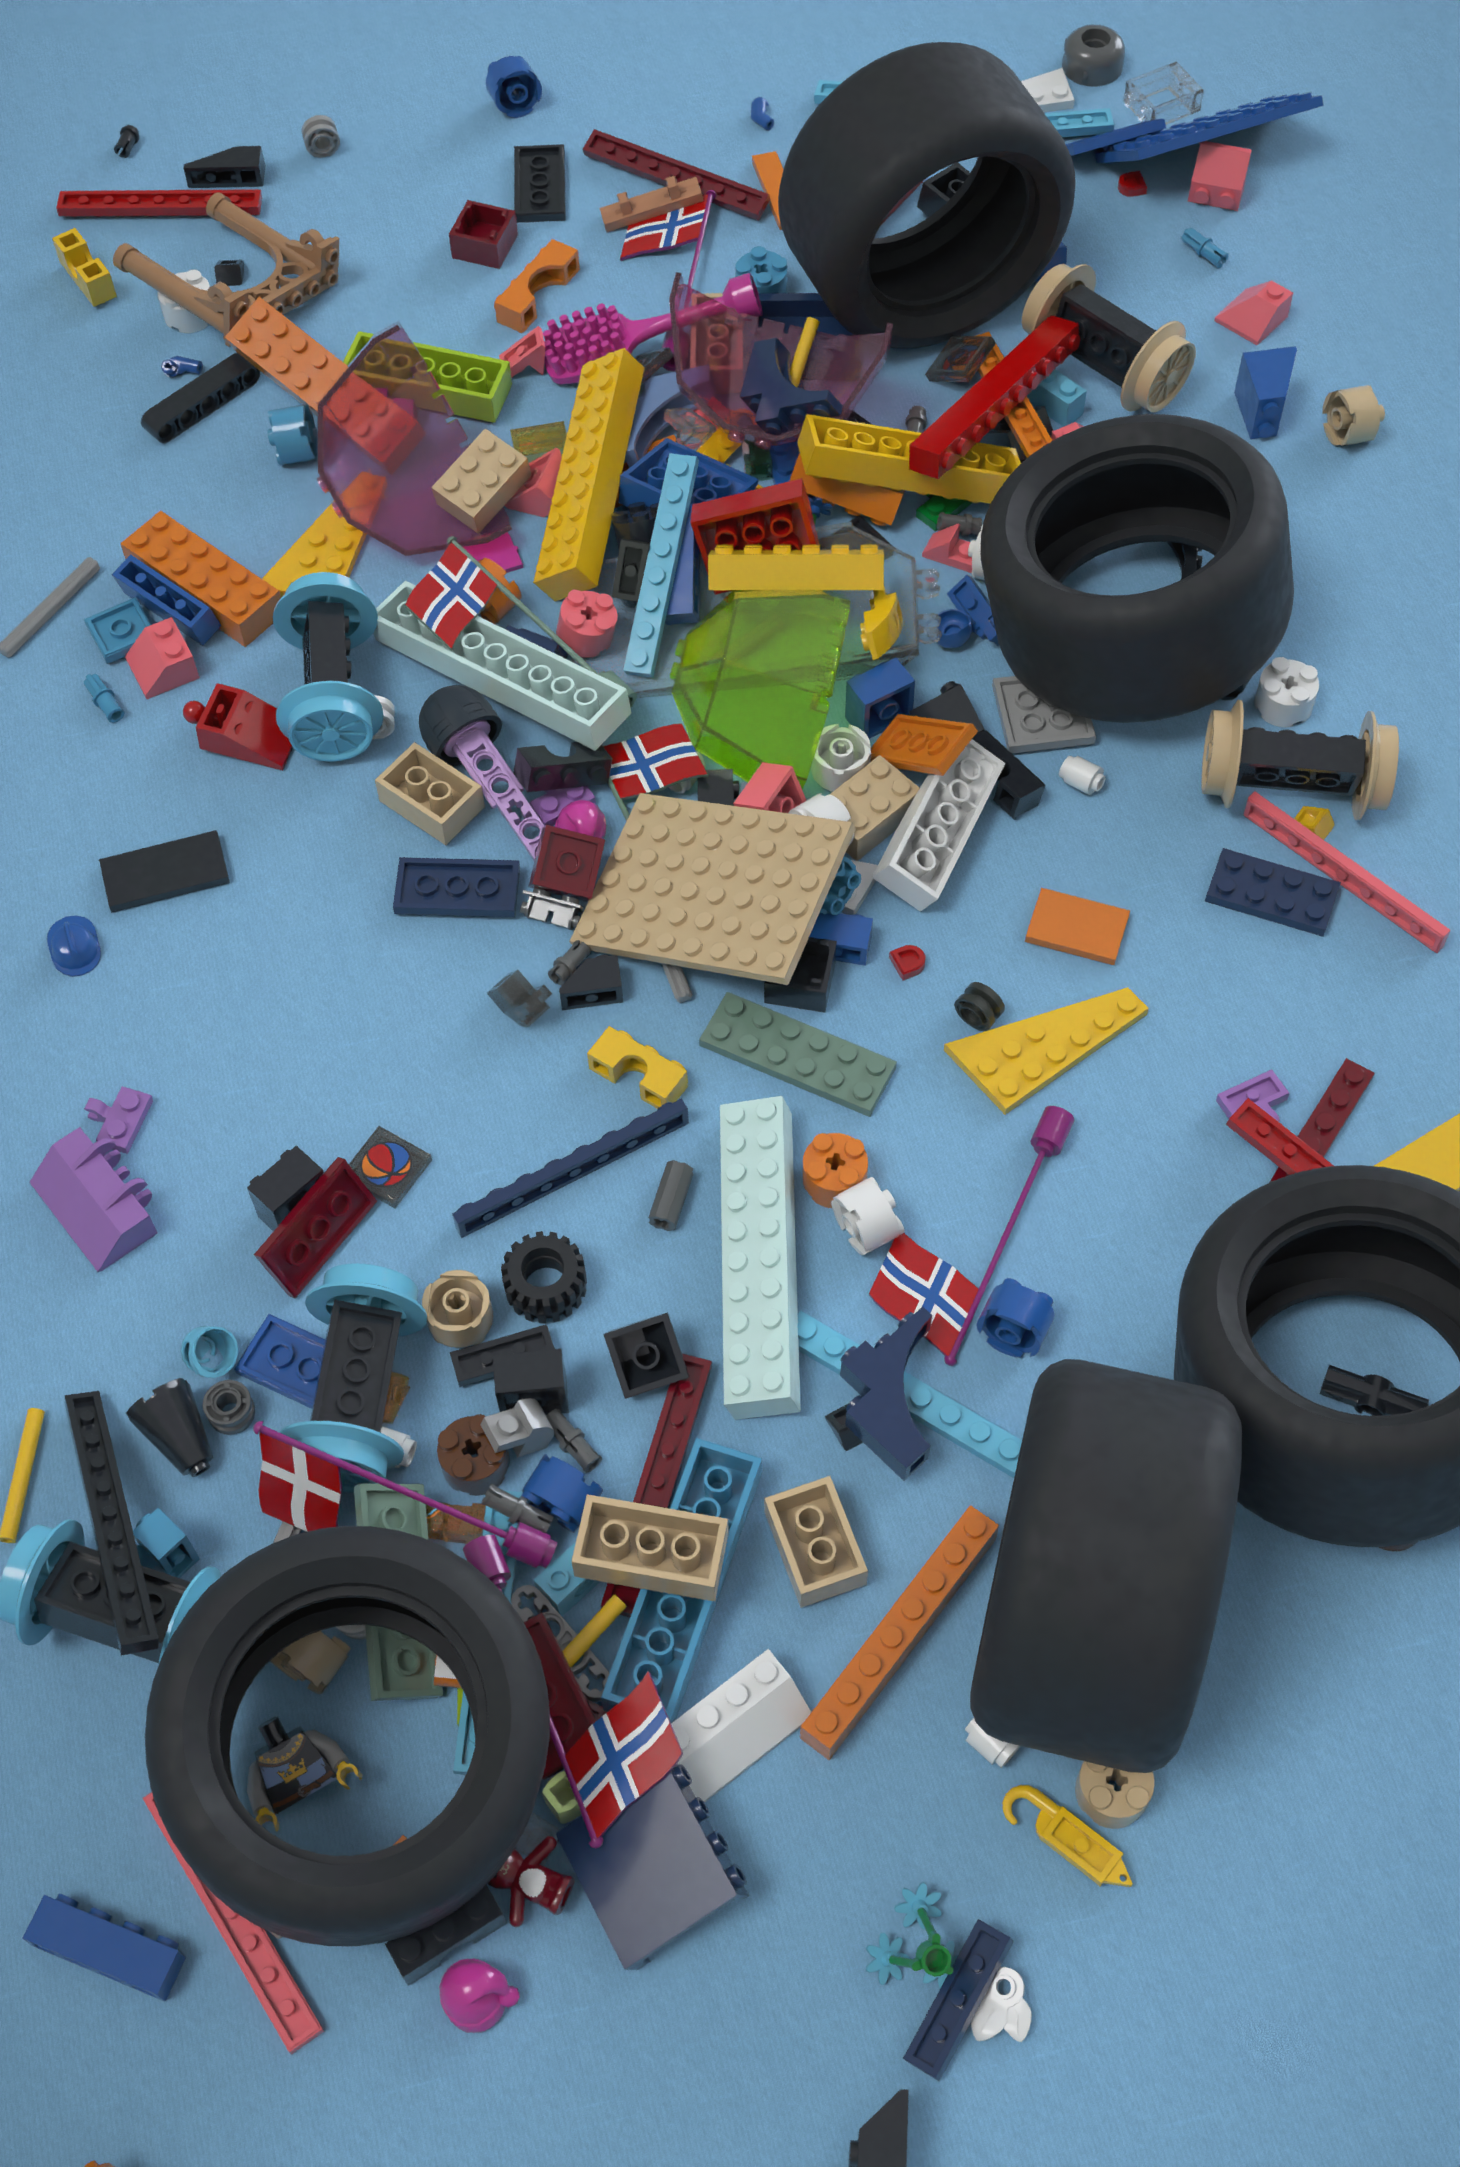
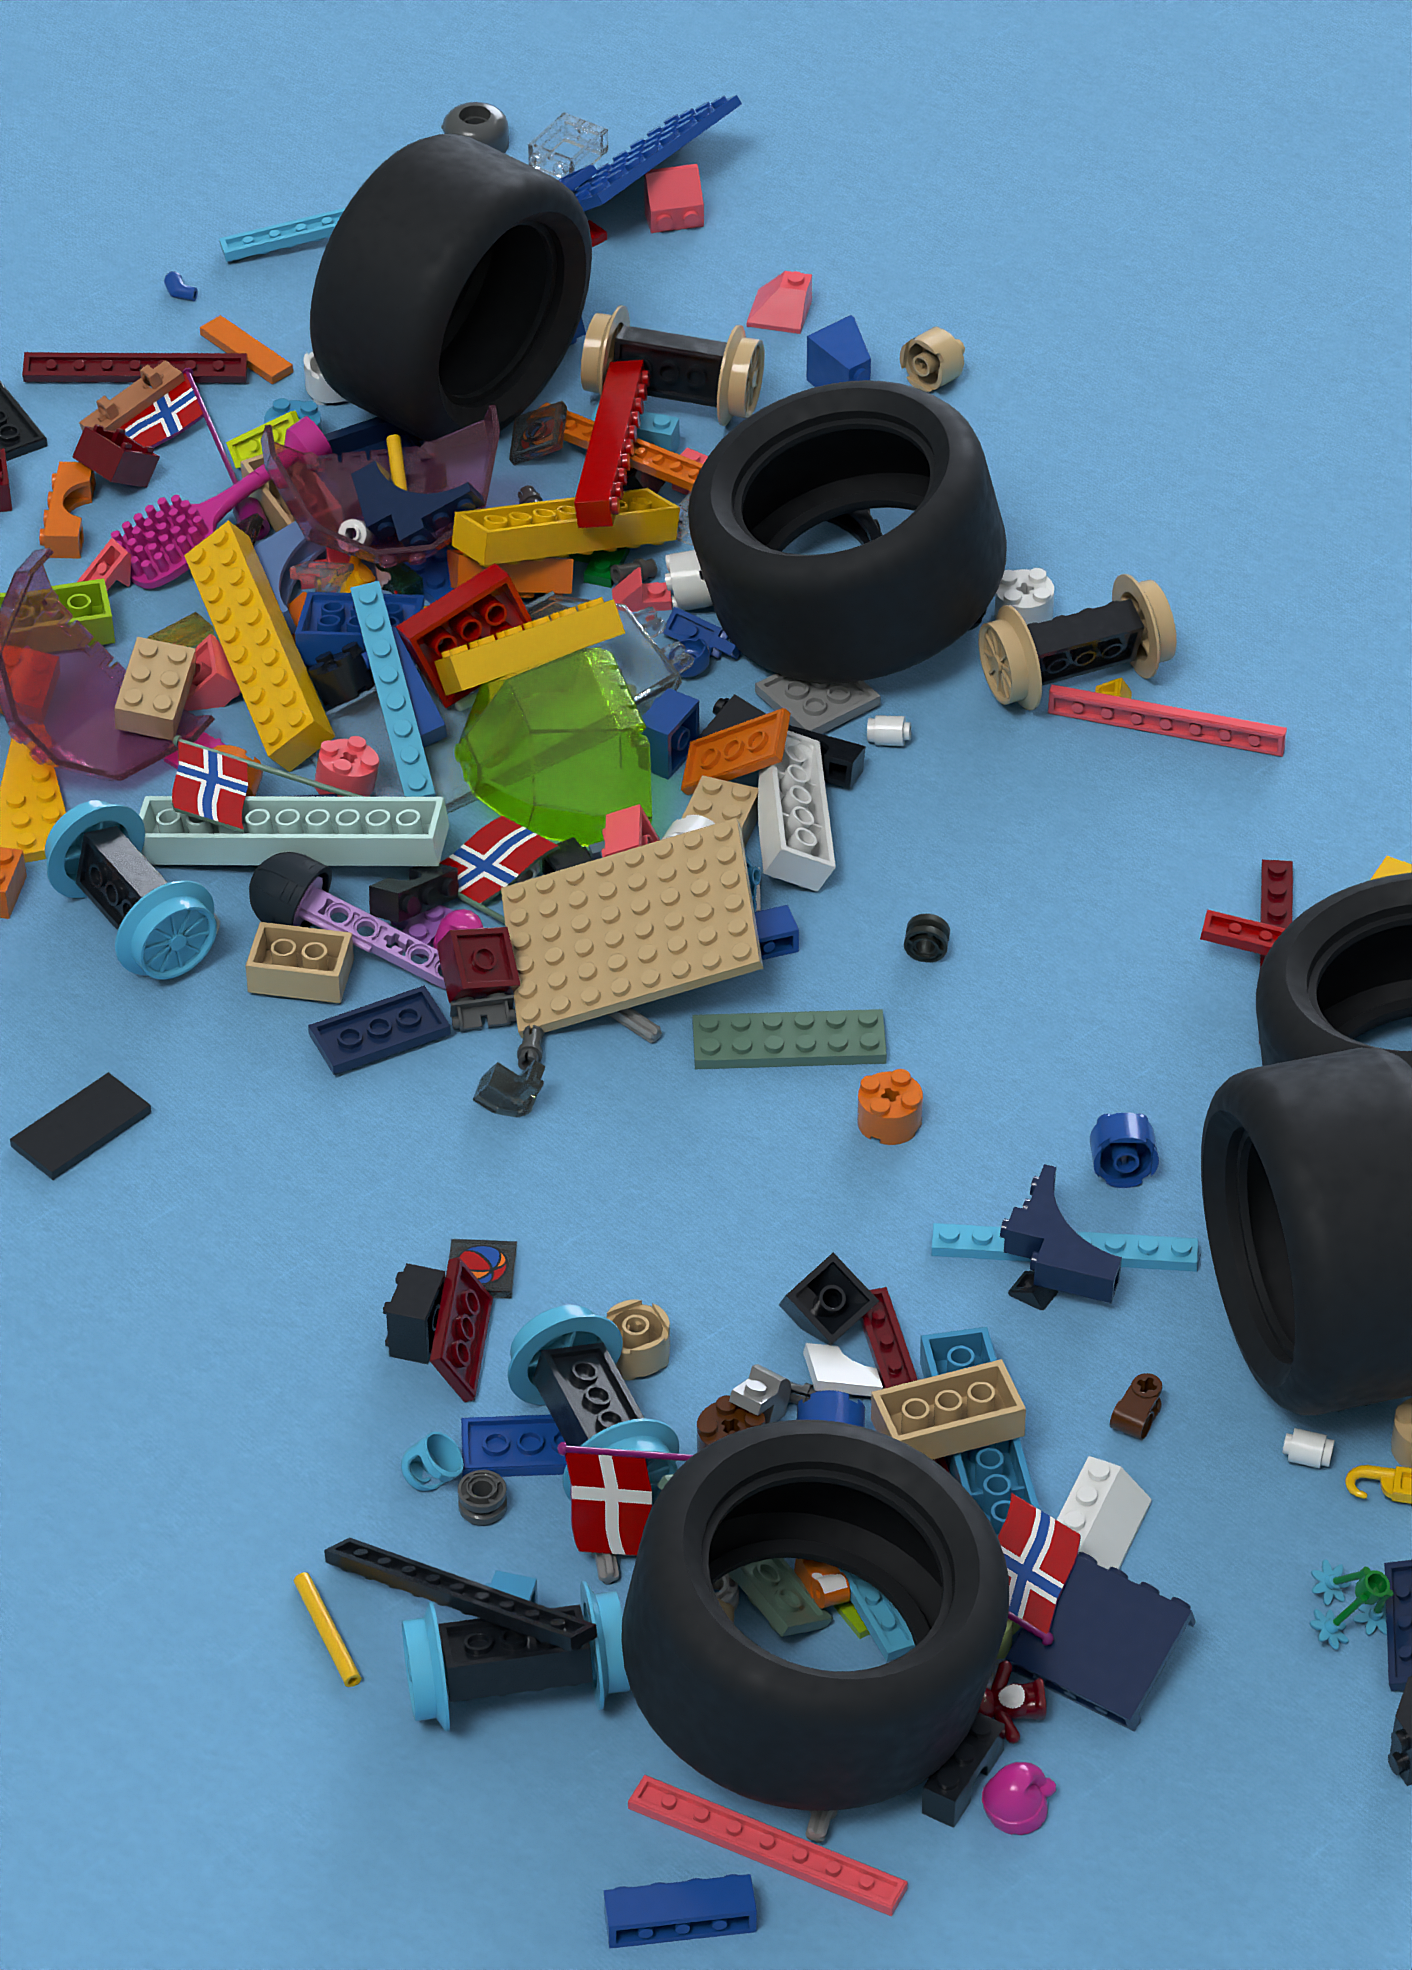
camera: 30 degrees left, 15 degrees down
(74, 945) = (38, 1218): blue piece -> none
(92, 1200) = (227, 1396): medium lavender piece -> none
(122, 1119) = (199, 1330): medium lavender plate -> none
(174, 1426) = (447, 1528): black cone -> none
(239, 727) = (68, 979): red slope -> none
(476, 1362) = (698, 1360): black plate -> none
(531, 1376) = (738, 1349): black container -> none
(537, 1254) = (694, 1266): black tyre -> none
(564, 1171) = (653, 1200): dark blue plate -> none
(593, 984) = (570, 1053): black slope -> none
(598, 251) = (116, 456): none -> dark red container
(612, 1431) = (837, 1372): none -> white tile
(619, 1053) = (634, 1096): yellow arch -> none
(630, 569) = (360, 708): pearl dark grey brick -> none
(670, 1195) = (758, 1185): dark grey axle -> none
(716, 279) = (249, 443): none -> neon yellow plate
(728, 400) = (363, 534): none -> white brick
(759, 1259) = (873, 1194): light aqua brick -> none
(810, 981) = (758, 987): black container -> none
(815, 1541) = (1069, 1372): tan brick -> none
(840, 755) = (671, 792): white brick -> none
(854, 1613) = (1138, 1406): none -> reddish brown piece
(867, 1215) = (945, 1125): white brick -> none
(881, 623) = (635, 663): yellow slope -> none
(898, 1633) = (1183, 1408): orange brick -> none
(908, 961) = (835, 932): red tile -> none
(920, 1279) = (1010, 1164): flag -> none
(1033, 1052) = (997, 956): yellow wing -> none
(1077, 926) = (965, 849): orange tile -> none
(1204, 247) = (697, 265): dark azure axle -> none
(1264, 1090) = (1192, 922): medium lavender plate -> none
(1272, 892) = (1114, 761): dark blue plate -> none

